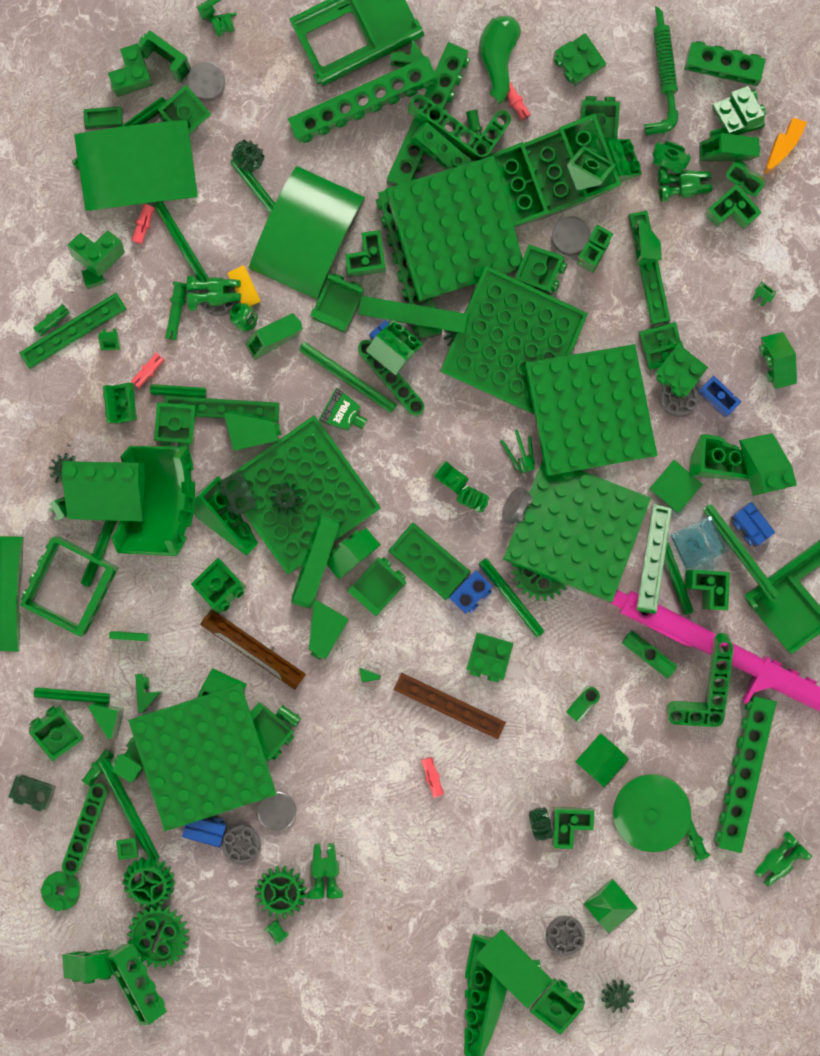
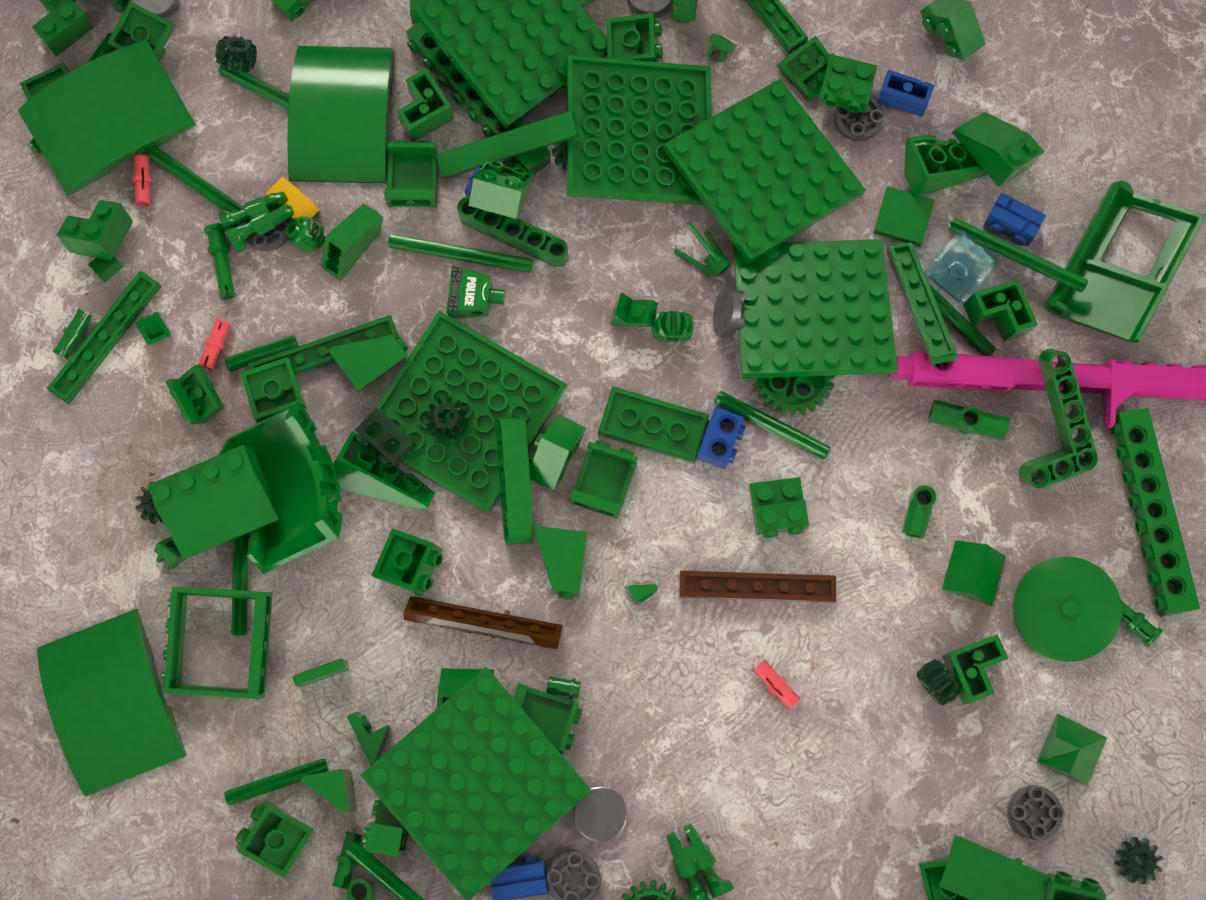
camera: 20 degrees left, 10 degrees down
(604, 299) = (722, 44): none -> green tile

